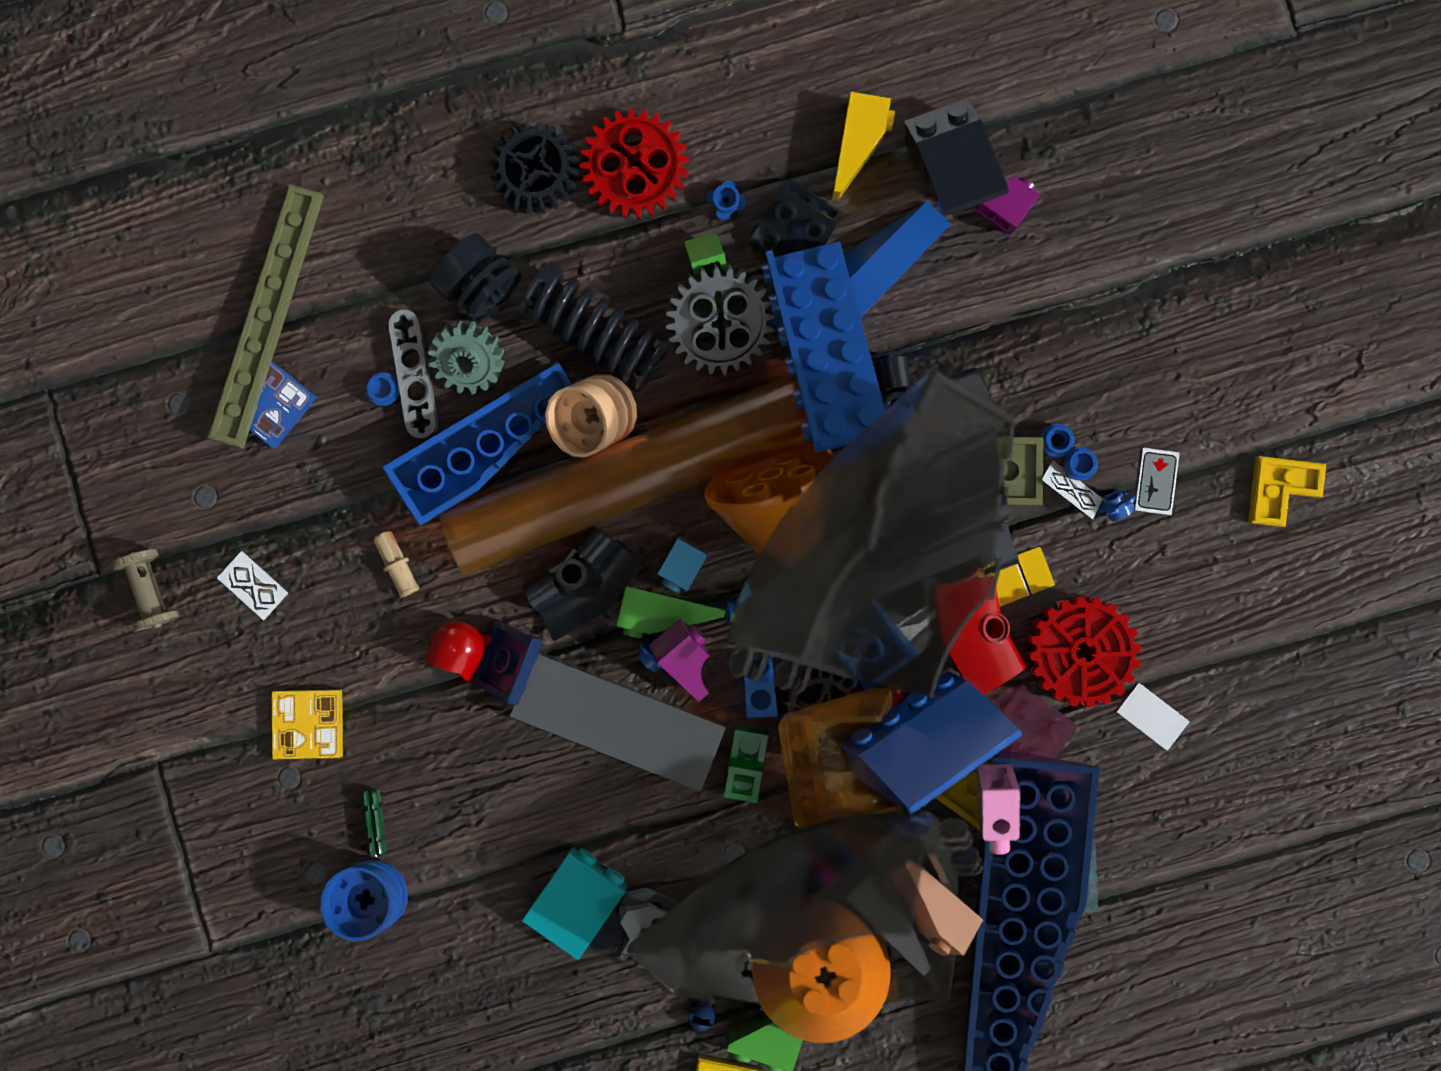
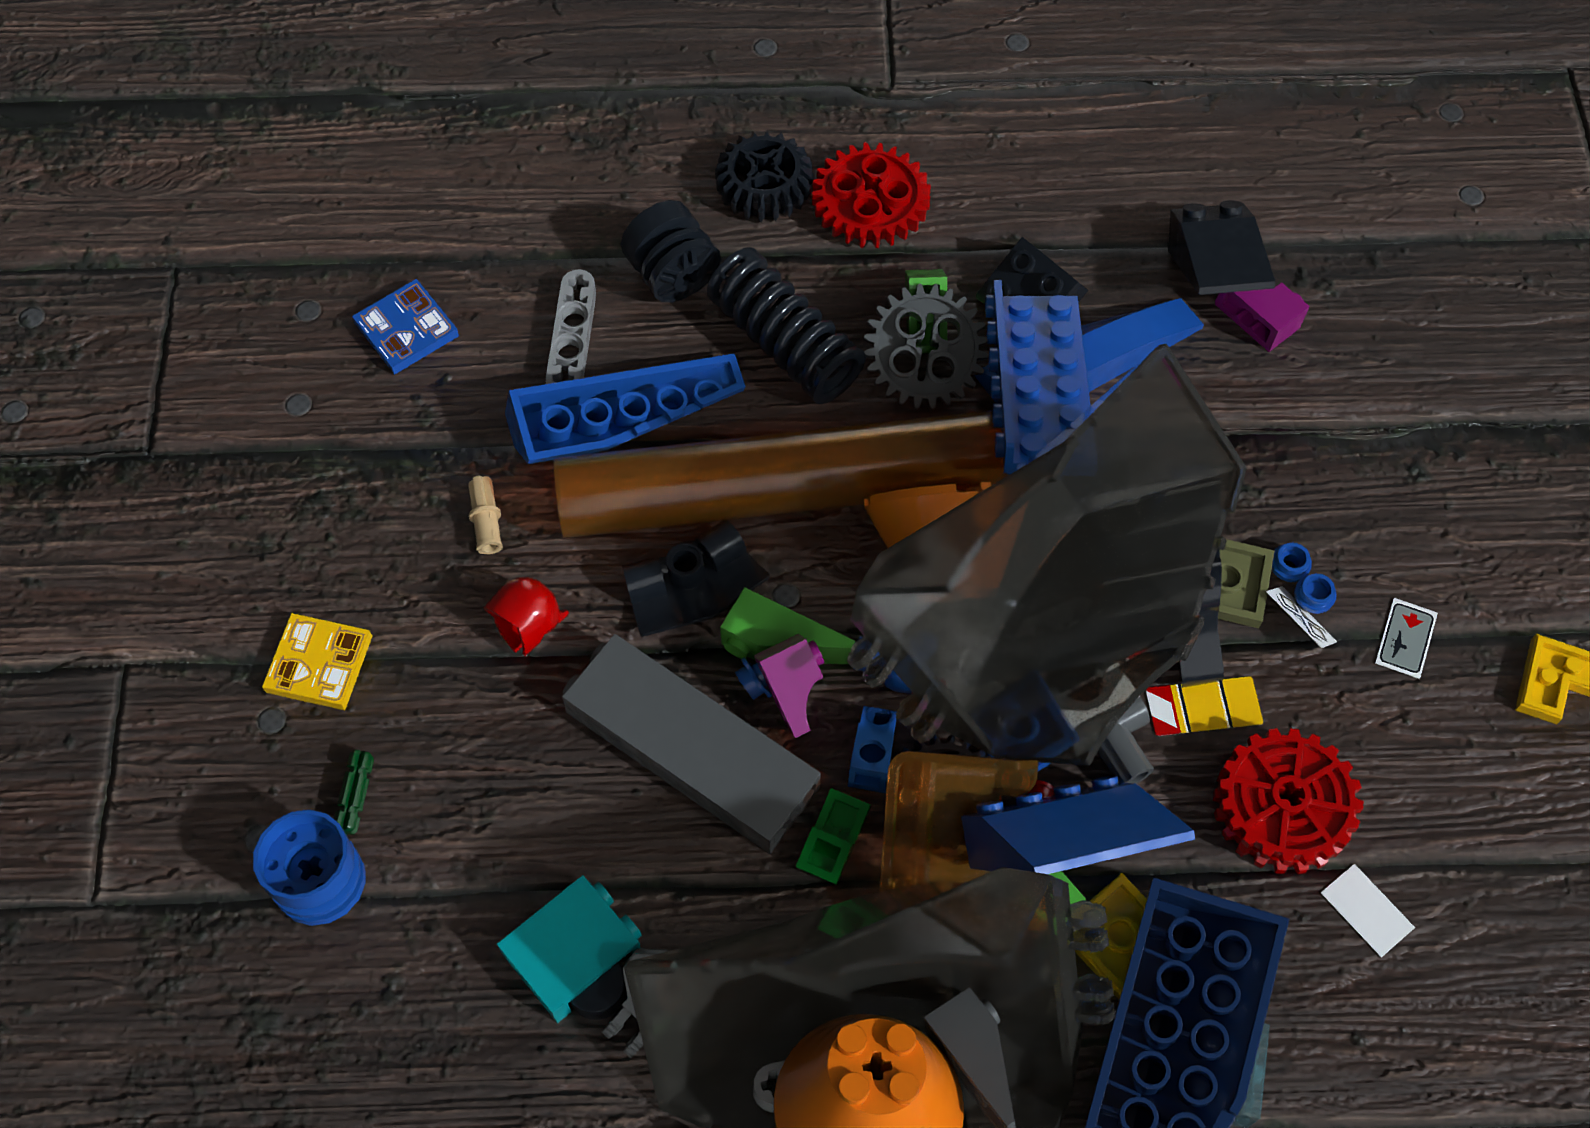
camera: 10 degrees right, 25 degrees down
(145, 589) = (192, 496): dark tan hose -> none
(252, 585) = (314, 503): white sticker -> none
(266, 316) = (430, 249): olive tile -> none
(382, 389) = (533, 340): blue plate -> none
(470, 341) = (617, 316): sand green gear -> none
(507, 662) = (578, 638): dark blue plate -> none
(591, 415) = (755, 396): light nougat wheel -> none
(681, 566) = (816, 588): dark azure brick -> none
(727, 190) = (960, 241): blue plate -> none
(863, 132) = (1120, 223): yellow slope -> none
(944, 917) = (1038, 1049): nougat slope -> none
(984, 658) = (1160, 746): red panel -> none
(998, 806) = (1153, 906): bright pink torso -> none
(1041, 725) = (1208, 869): clear pink piece -> none
(1117, 505) = (1354, 645): blue plate -> none

